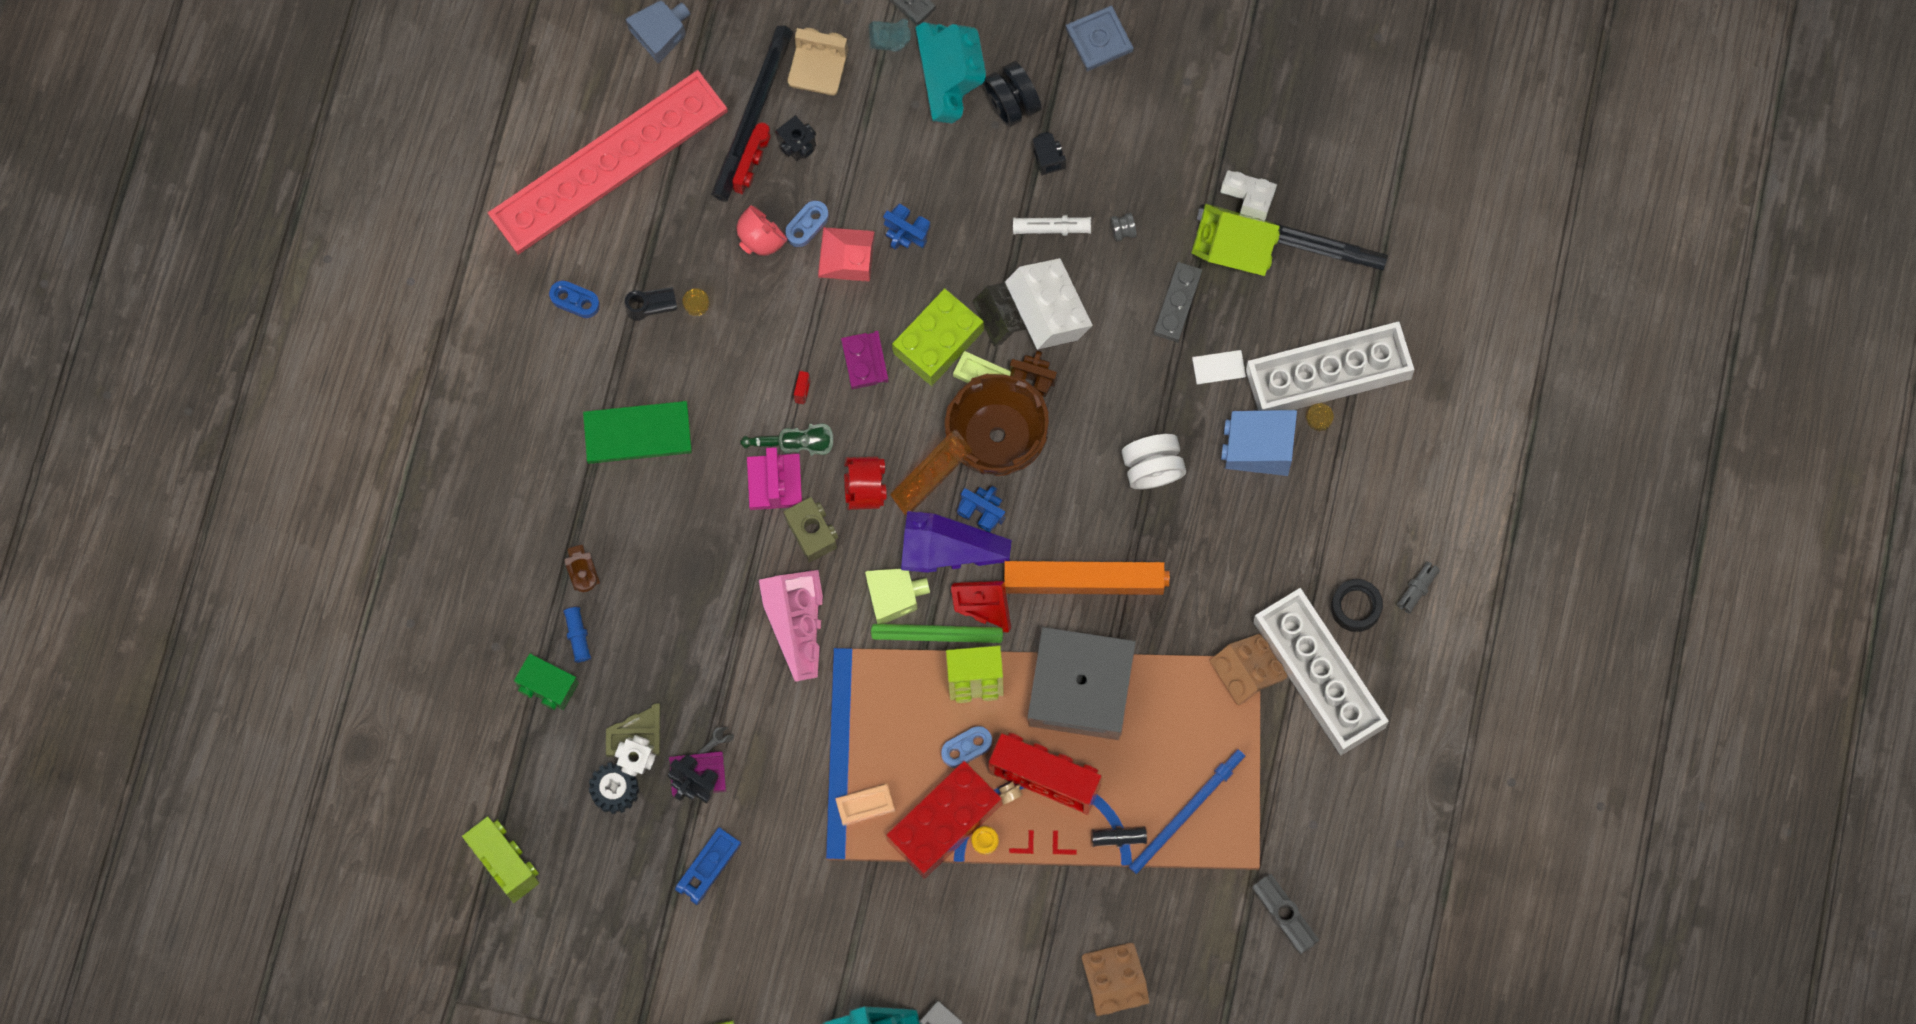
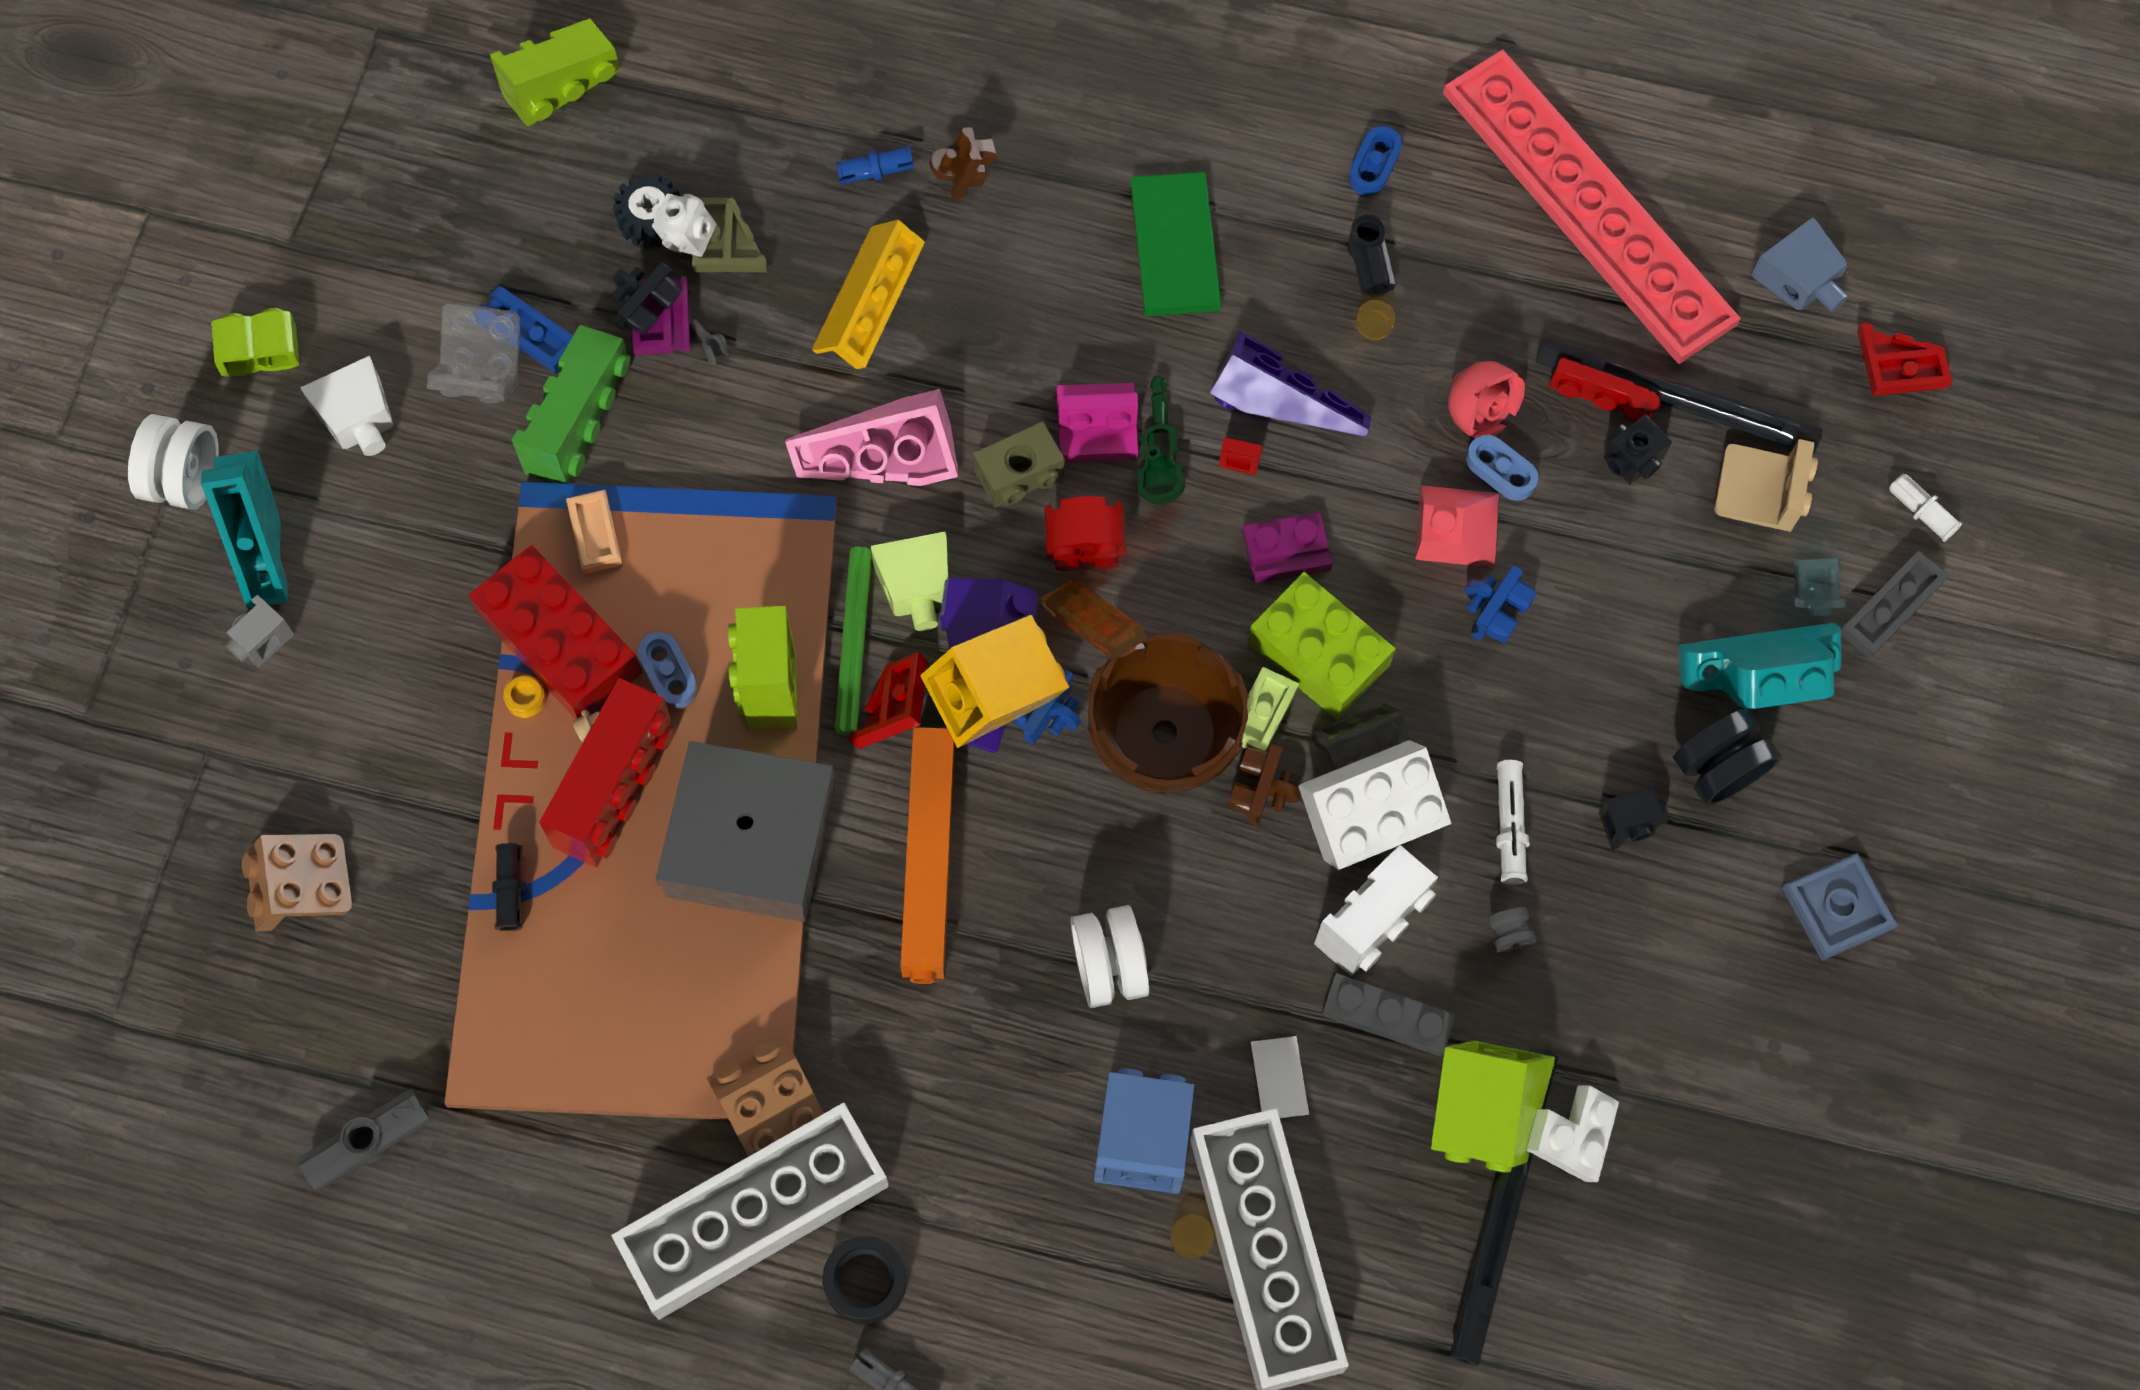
camera: 85 degrees right, 5 degrees down
(545, 682) = (806, 125): green brick -> none
(678, 635) = (869, 293): none -> yellow panel
(734, 893) = (477, 353): none -> clear bracket
(752, 368) = (1260, 385): none -> wedge
(770, 825) = (572, 407): none -> bright green wedge
(772, 978) = (352, 406): none -> white torso
(979, 531) = (994, 679): none -> yellow slope
(1116, 305) = (1376, 912): none -> white wedge
(1222, 773) = (597, 1049): blue bar -> none

